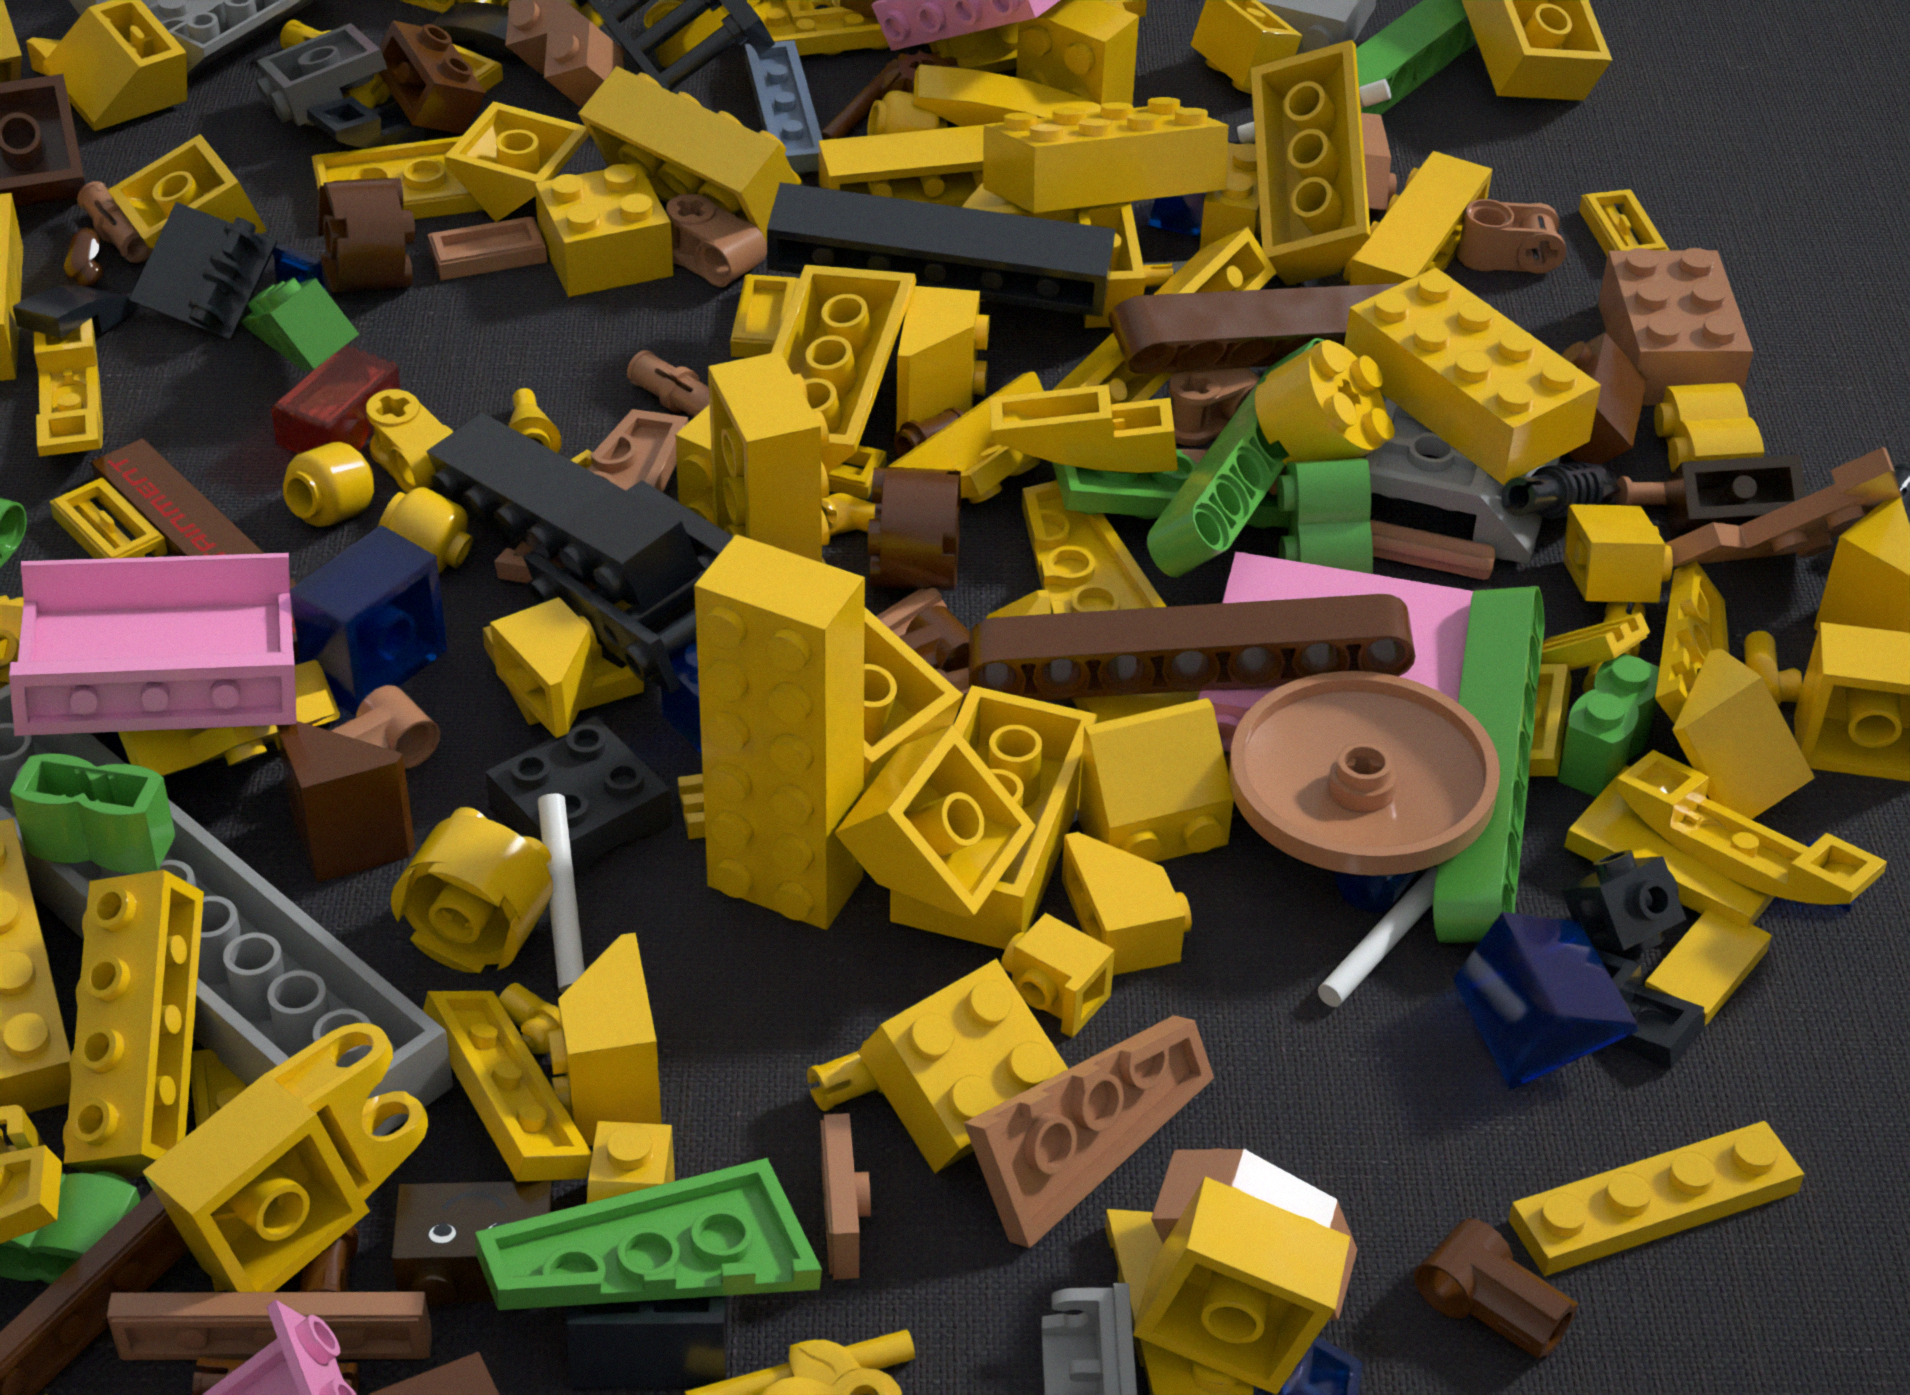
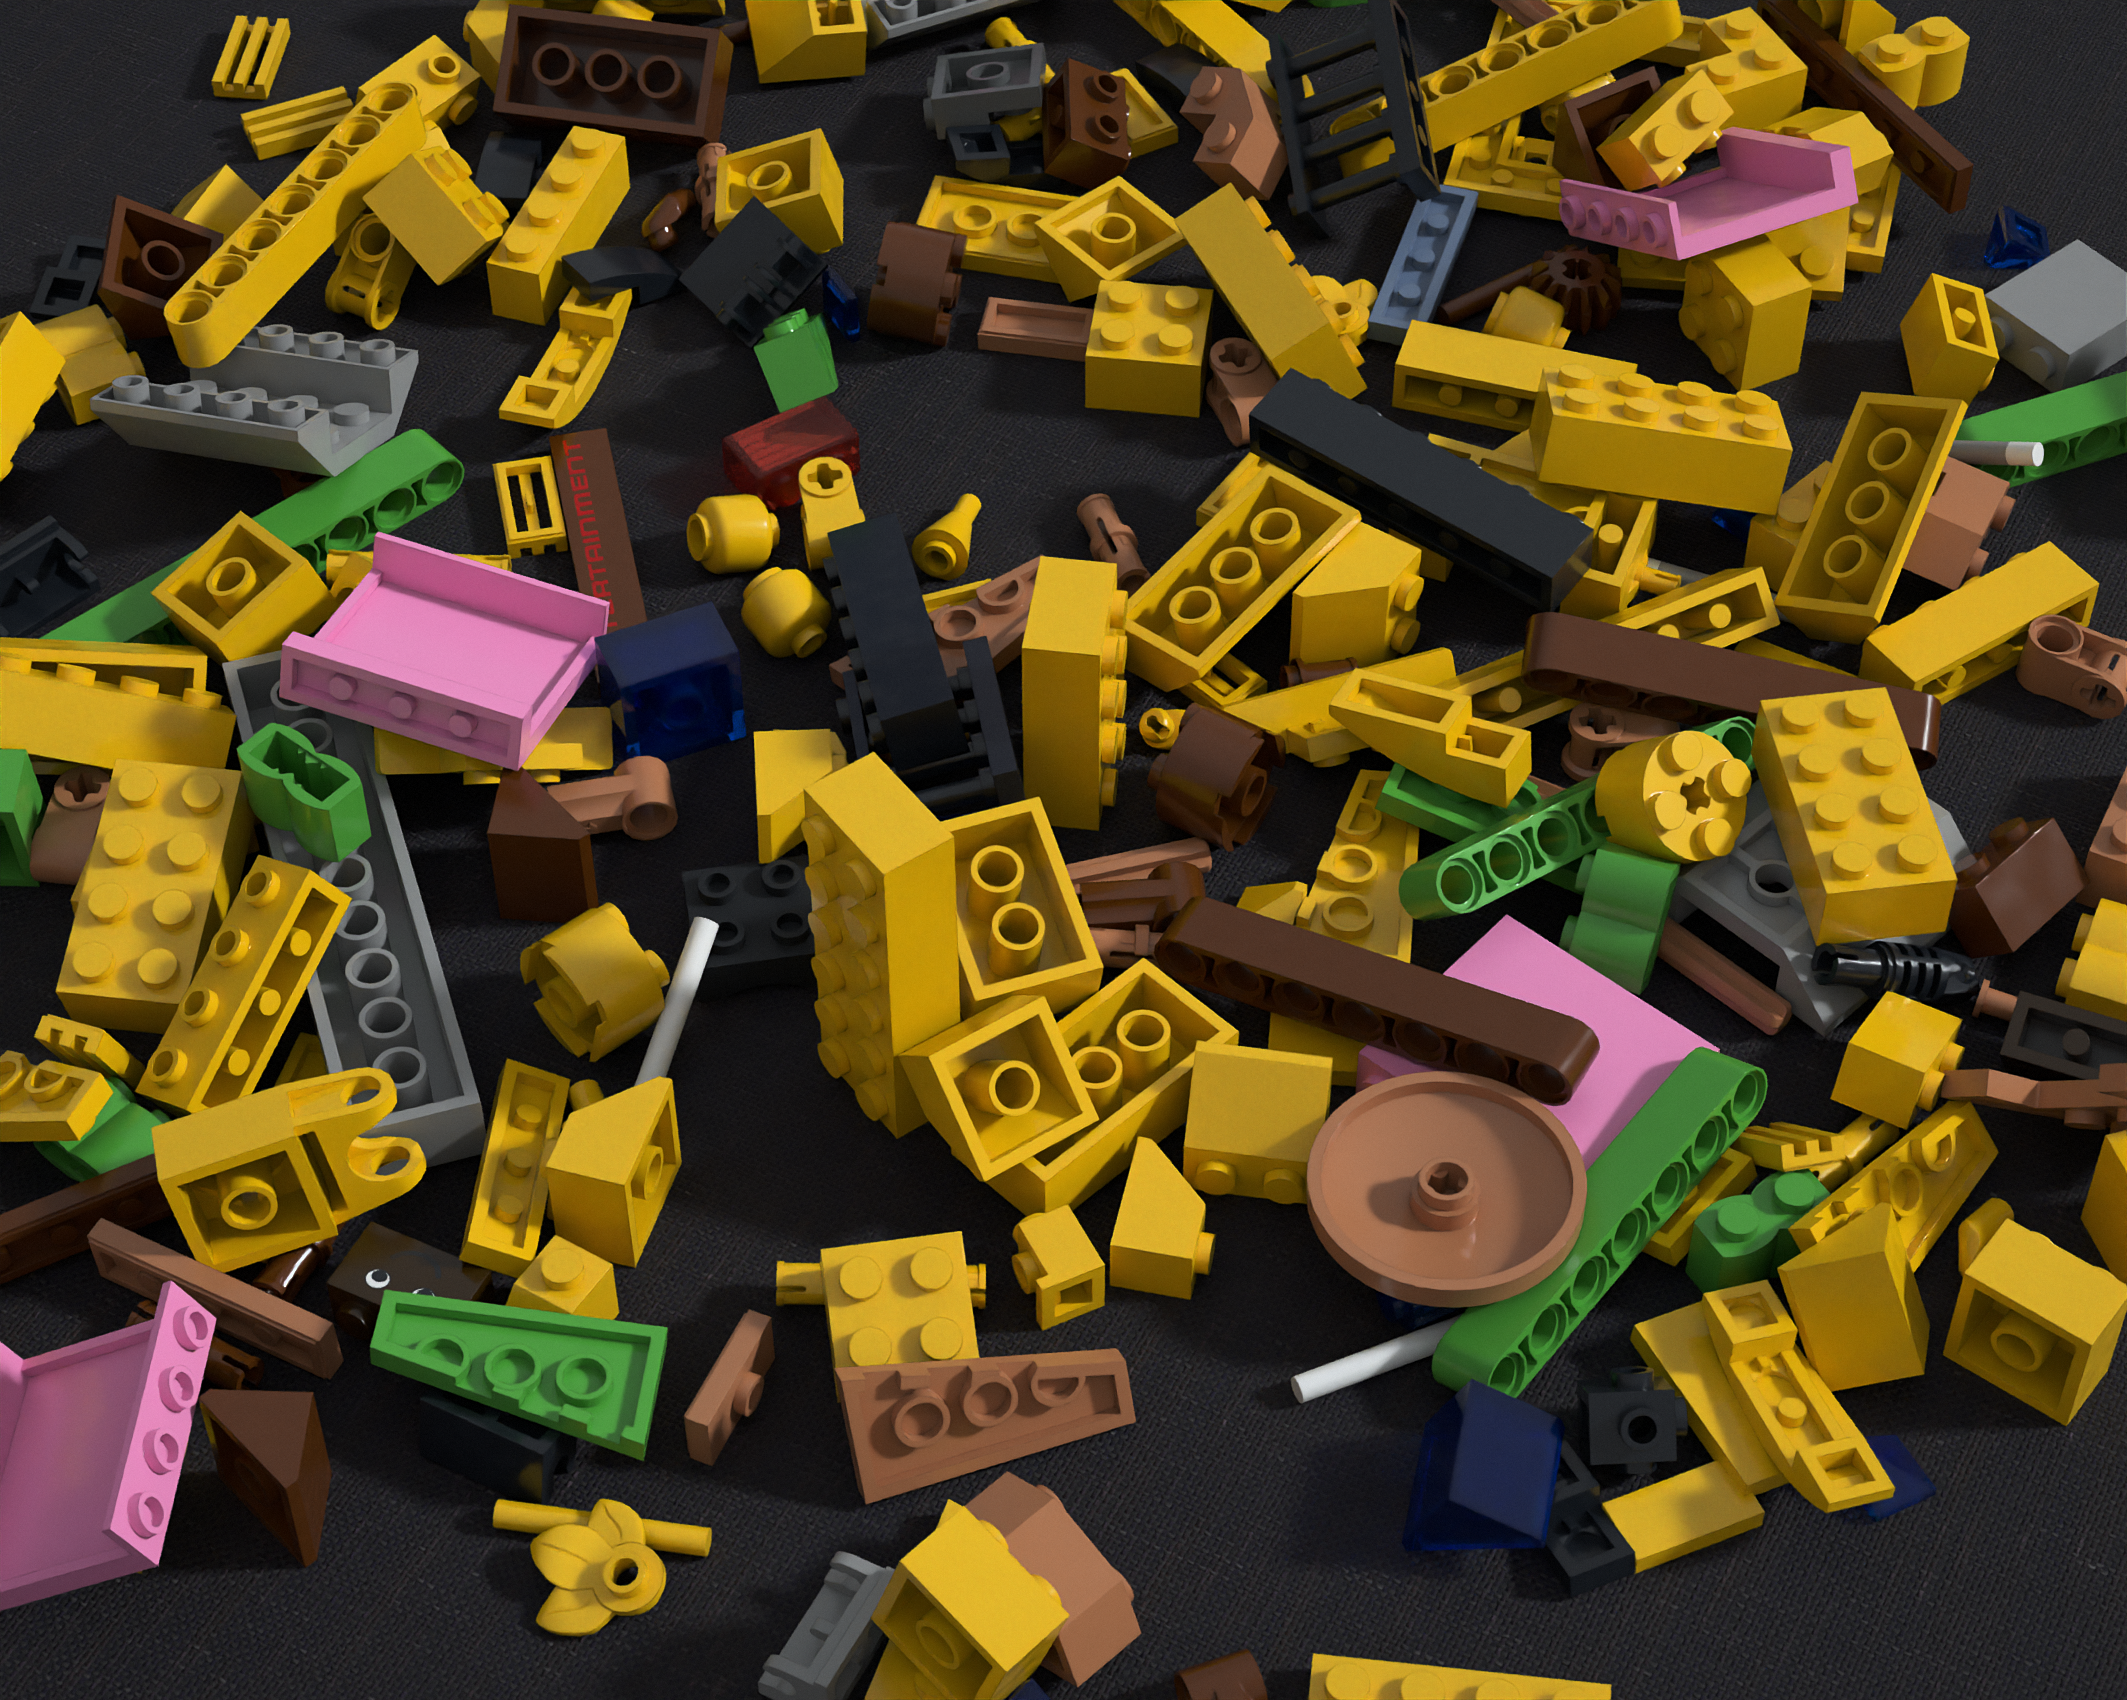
camera: 30 degrees right, 5 degrees up
(984, 97) = (1620, 329): yellow slope -> none

